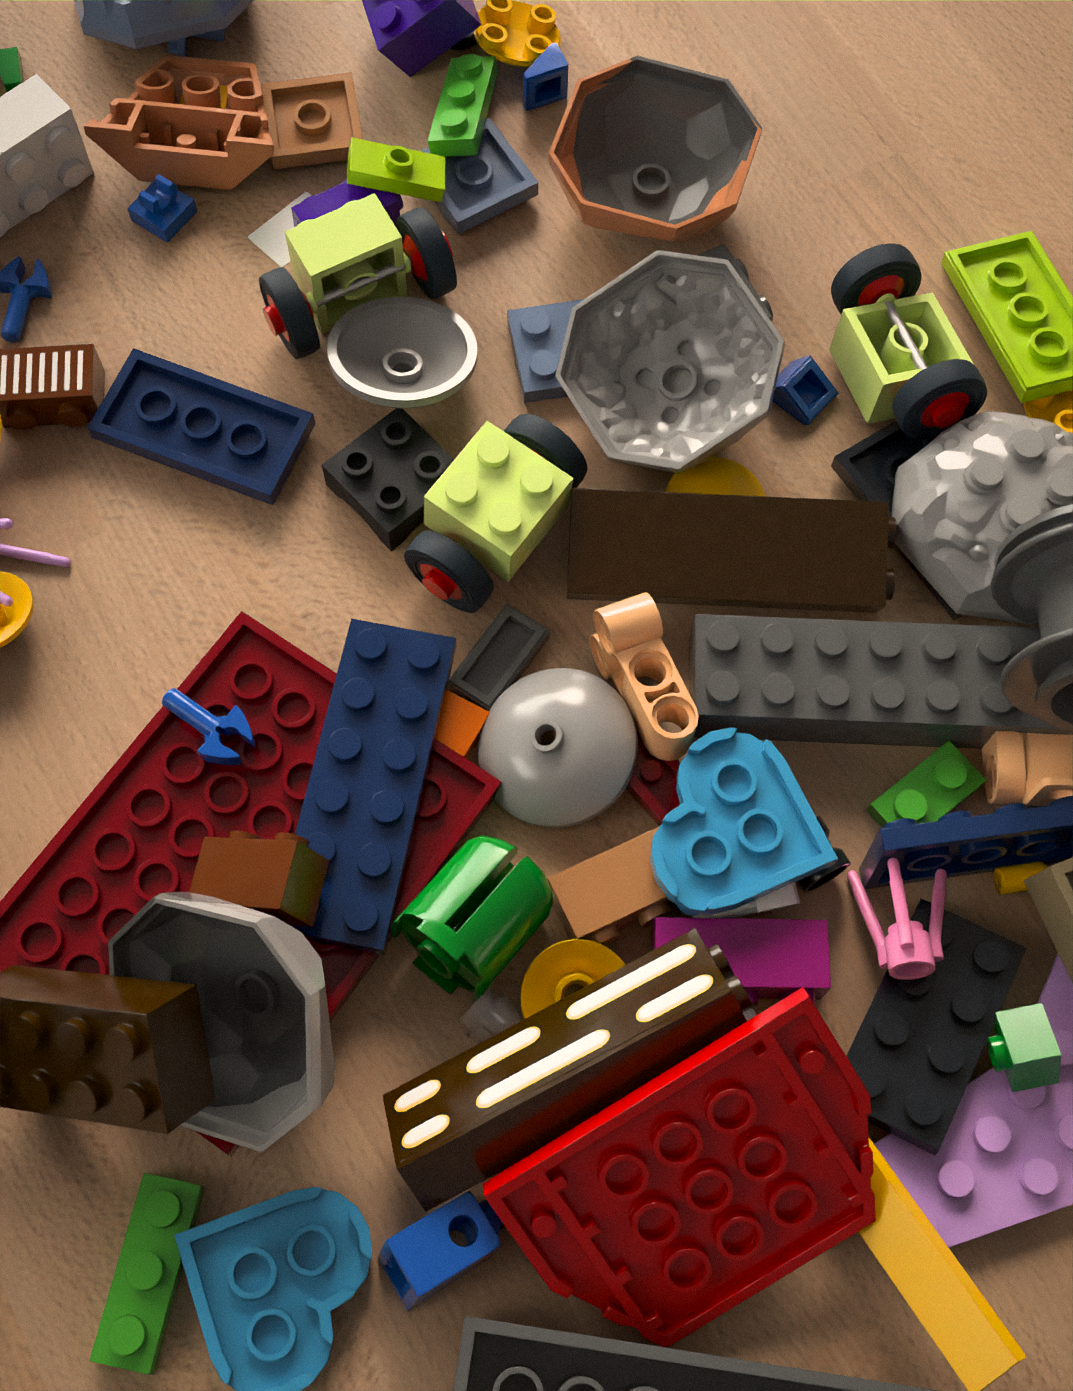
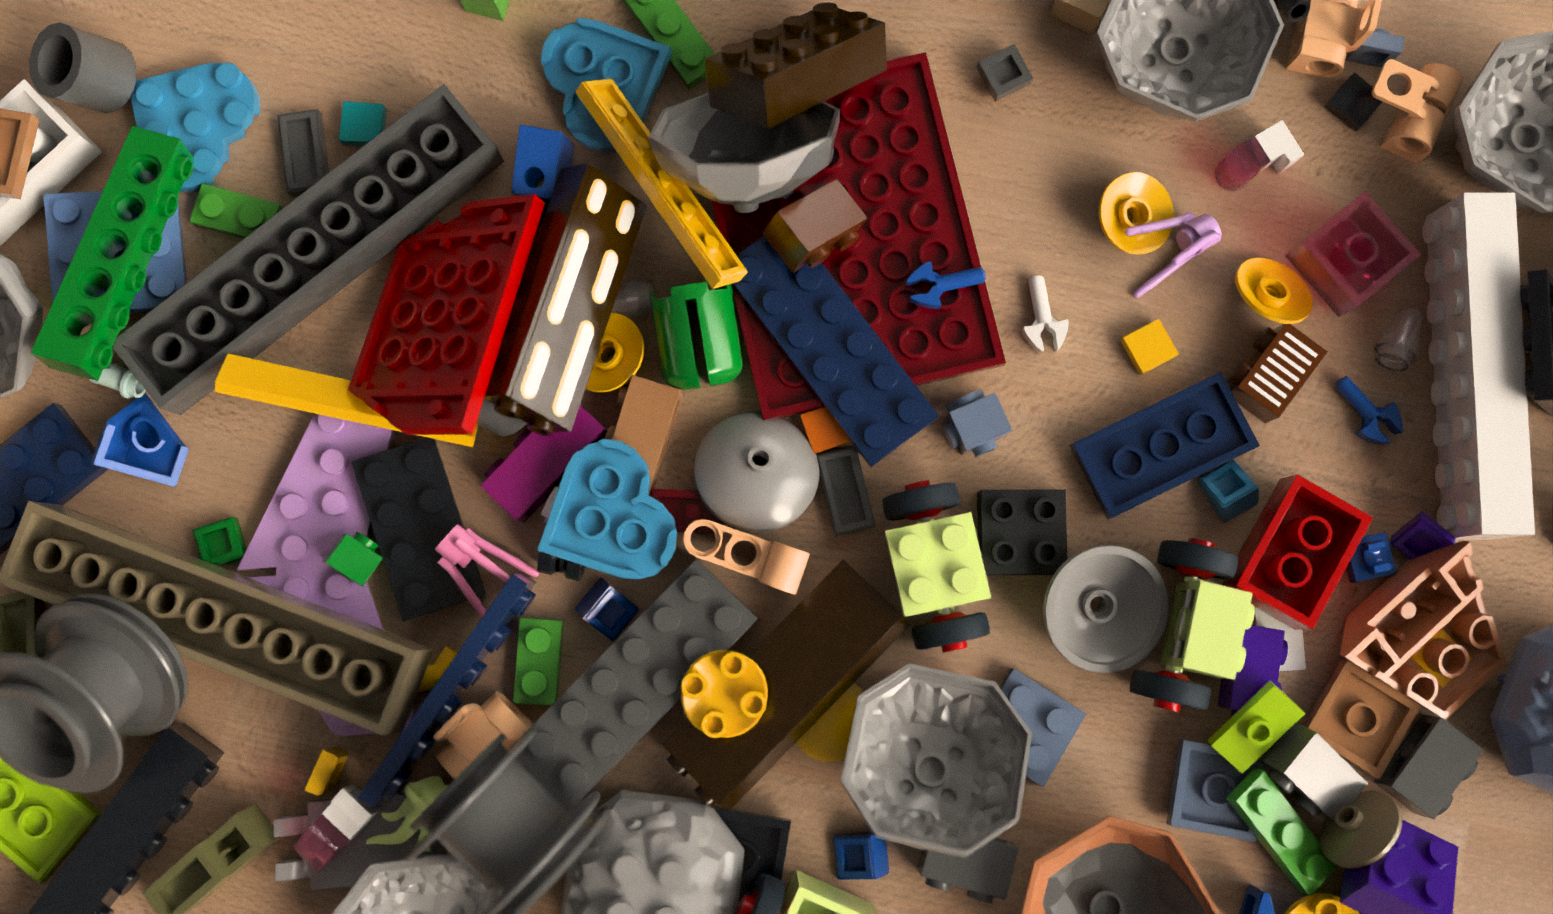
camera: 135 degrees right, 15 degrees up
(108, 179) = (1421, 536): none -> dark purple tile
(113, 510) = (1149, 347): none -> yellow tile
(164, 621) = (1043, 318): none -> white bar
(197, 348) = (1229, 490): none -> dark azure slope
(205, 249) = (1298, 551): none -> red brick
(305, 45) = (1430, 766): none -> dark grey brick
(325, 592) = (975, 423): none -> sand blue brick
(337, 1125) = (669, 195): none -> yellow tile
(395, 108) = (1313, 772): none -> brick
(408, 29) = (1361, 830): none -> dark tan dish
(791, 579) = (724, 693): none -> yellow dish
(821, 776) = (606, 609): none -> blue slope

